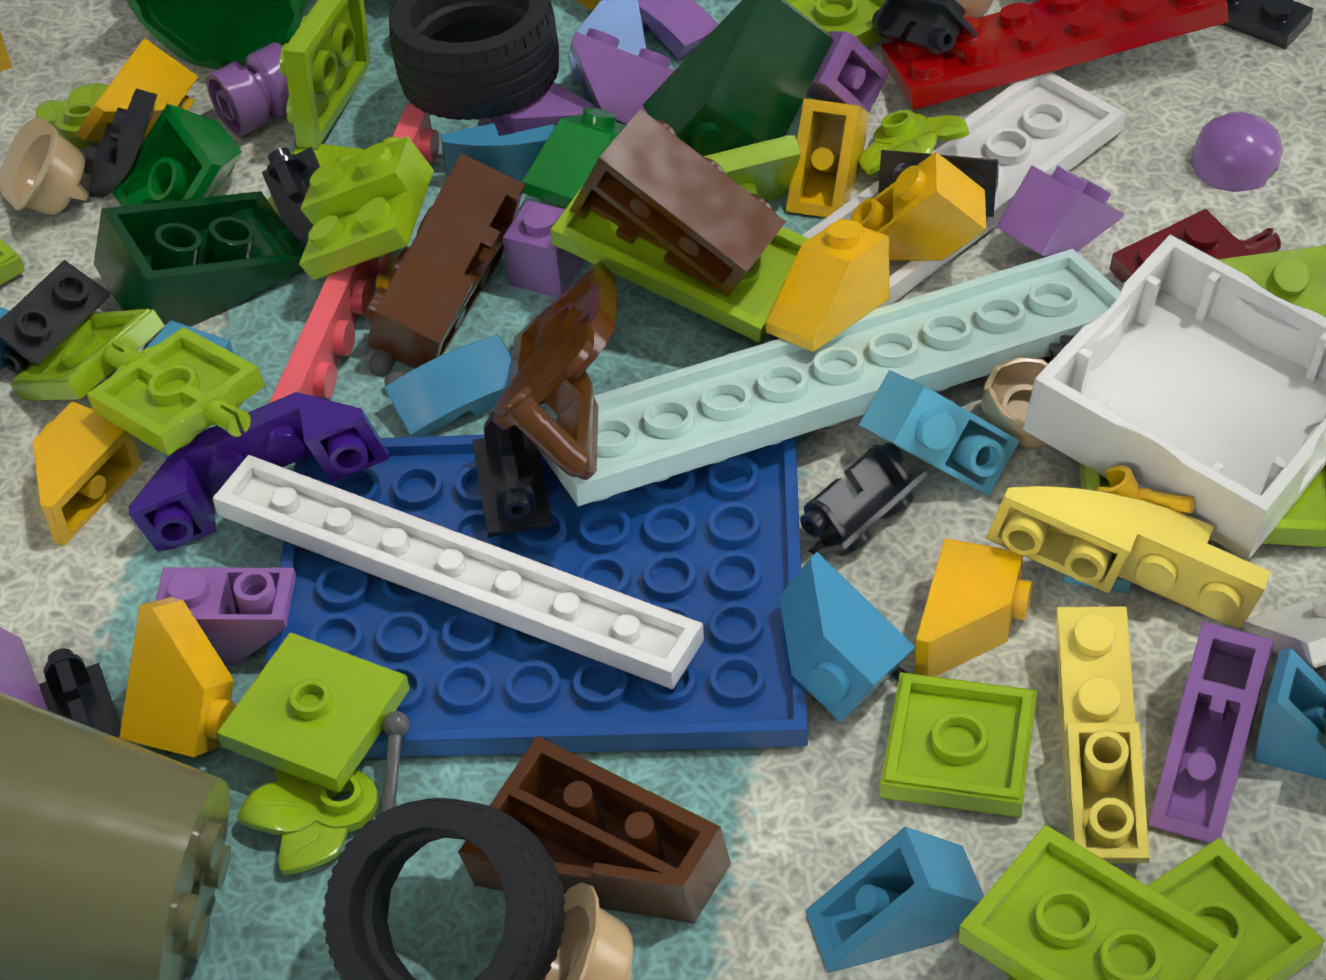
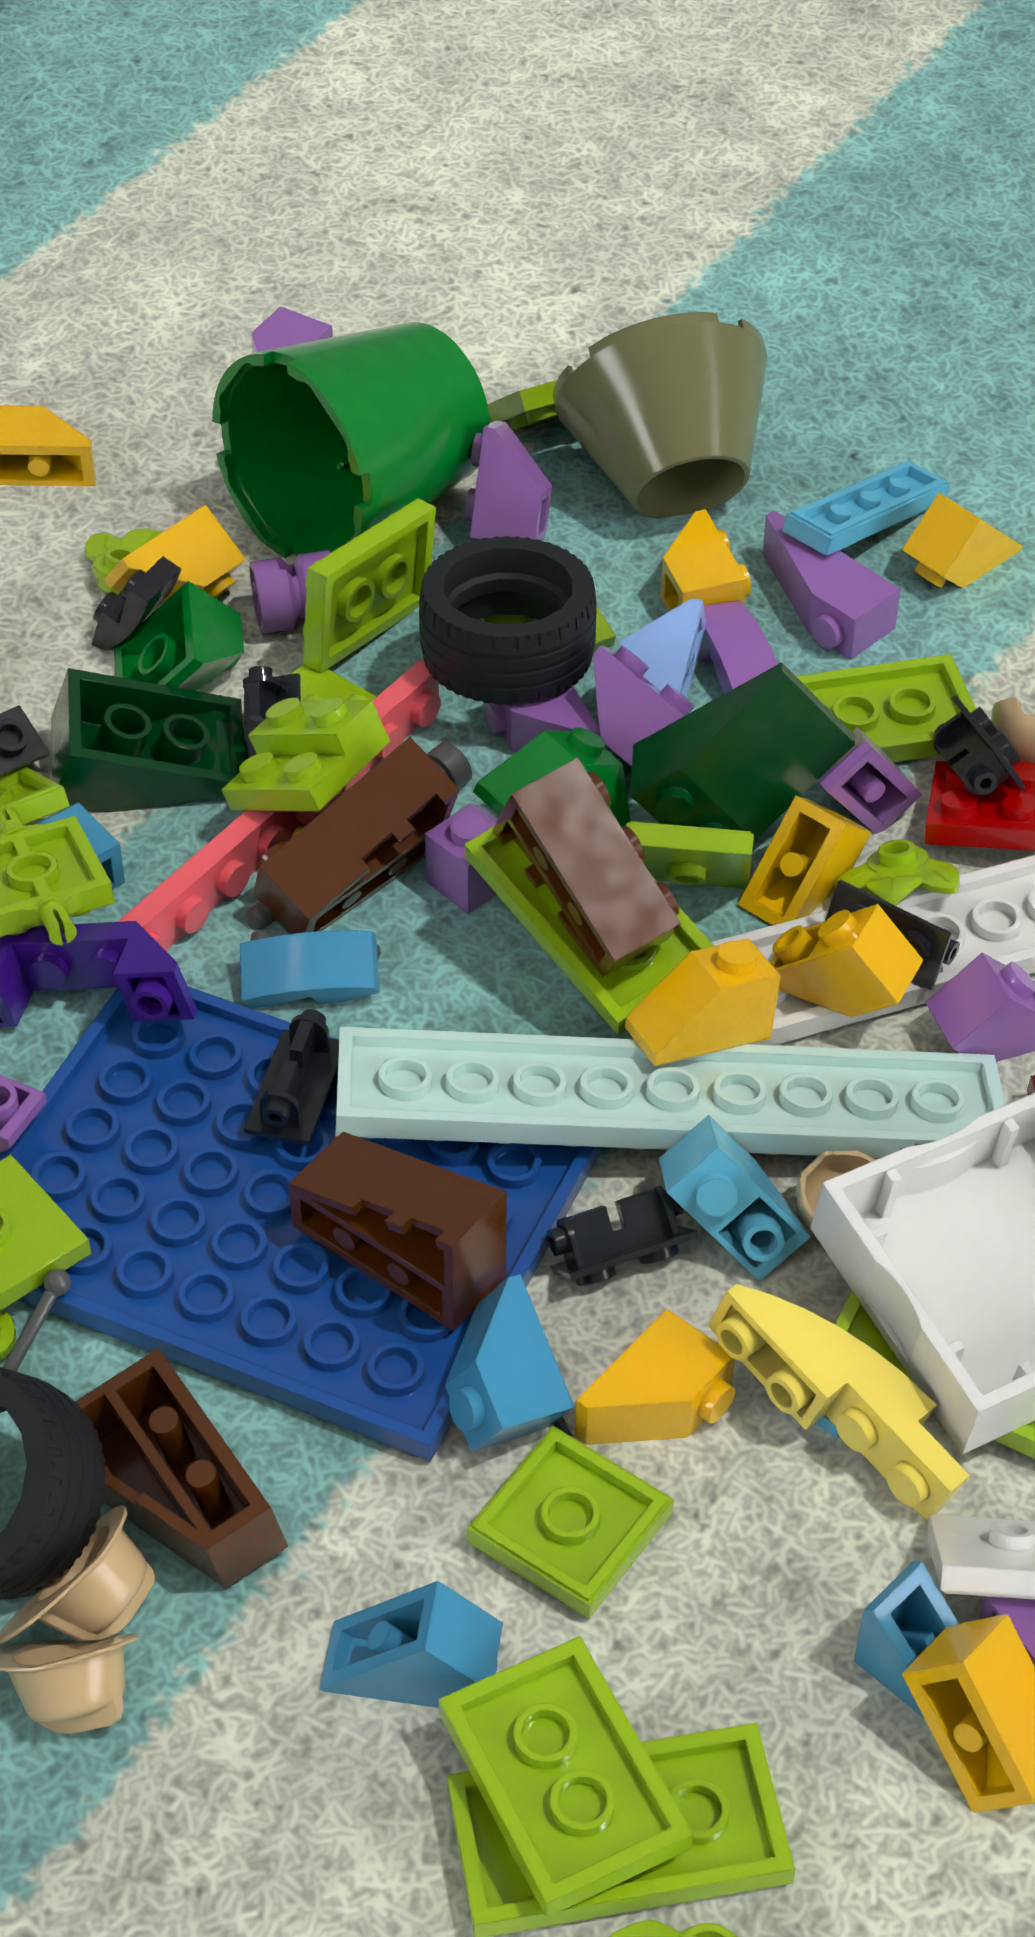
camera: 20 degrees right, 0 degrees up
(42, 170) = (55, 607): tan piece -> none
(462, 571) = (199, 1160): white plate -> none
(508, 153) = (475, 737): dark azure slope -> none
(551, 368) = (385, 987): reddish brown plate -> none
(689, 549) = (405, 1224): none -> reddish brown wedge
(1100, 734) = (704, 1572): light yellow slope -> none
(1124, 484) = (874, 1334): yellow hand -> none
(1211, 732) = (812, 1616): medium lavender slope -> none

